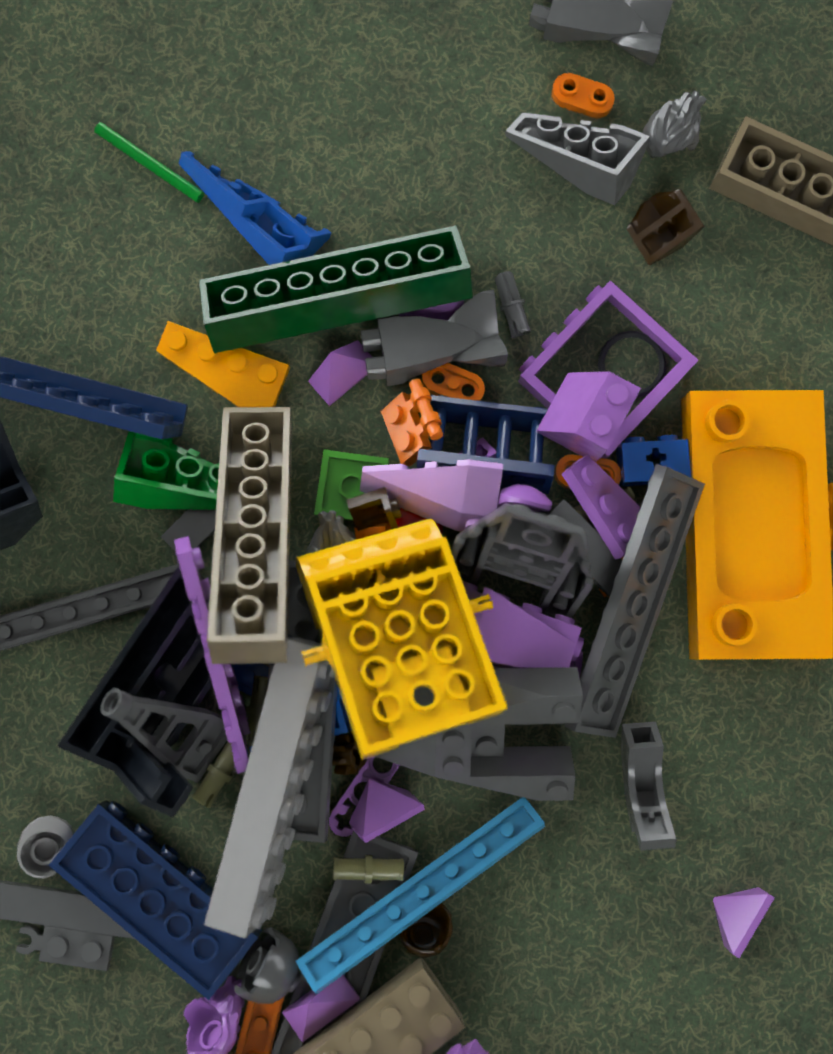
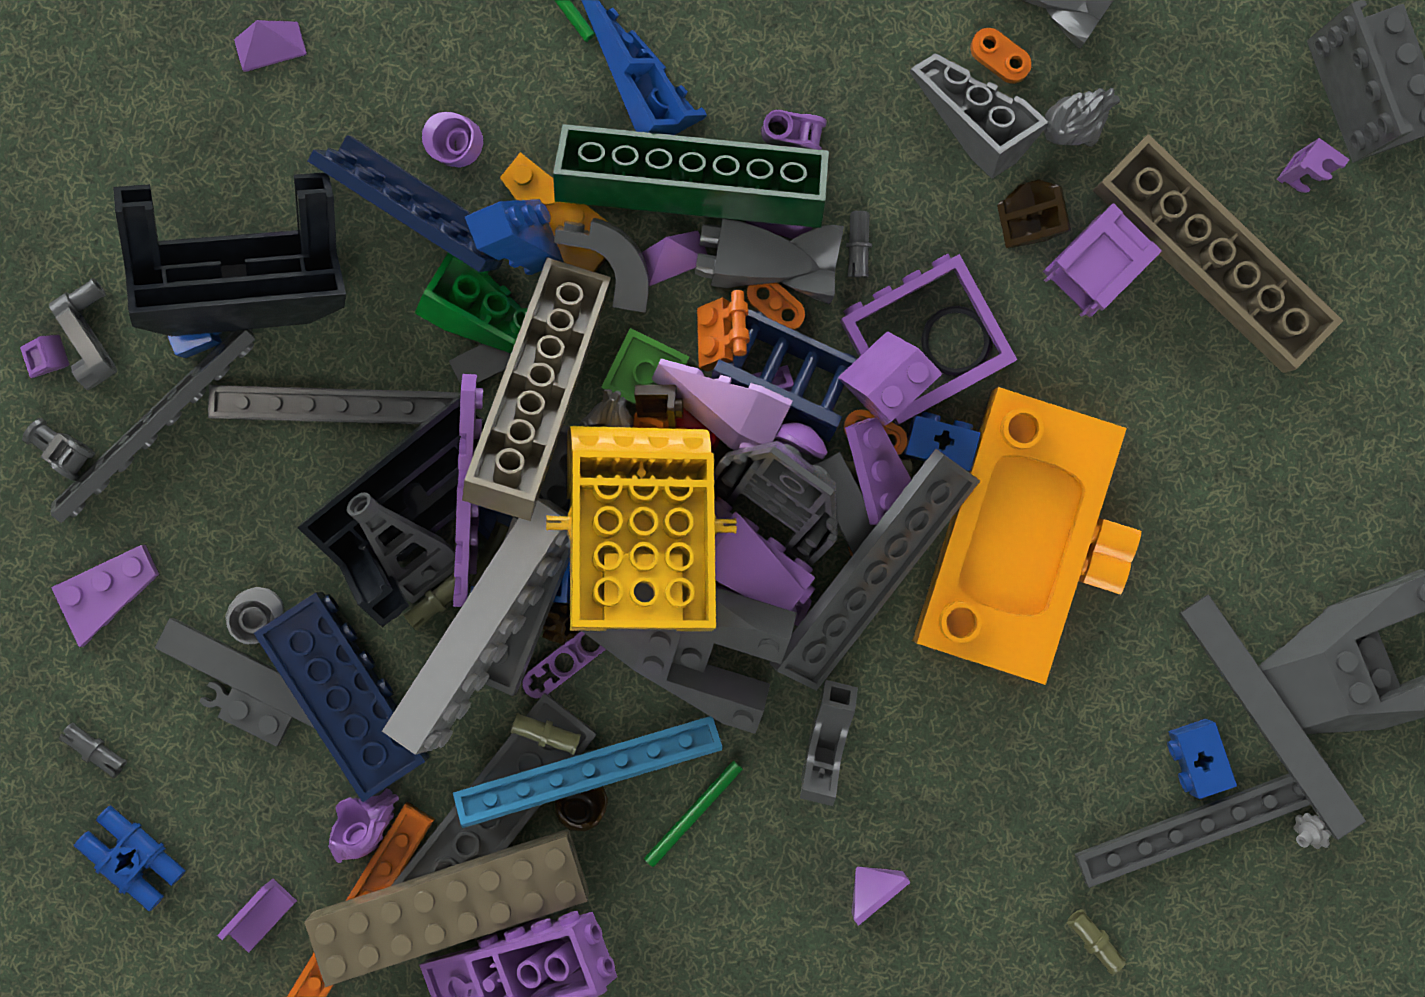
camera: 25 degrees right, 5 degrees up
(89, 324) = (440, 137): none -> medium lavender hat
(184, 391) = (515, 232): none -> blue wedge
(269, 969) = (426, 793): dark grey cylinder -> none
(300, 386) = (622, 254): none -> dark grey arch
(316, 1010) = (461, 843): medium lavender slope -> none
(382, 808) = (576, 683): medium lavender slope -> none
(417, 215) = (796, 128): none -> medium lavender piece
(537, 900) = (693, 813): none -> green bar
(744, 245) = (1102, 261): none -> medium lavender container

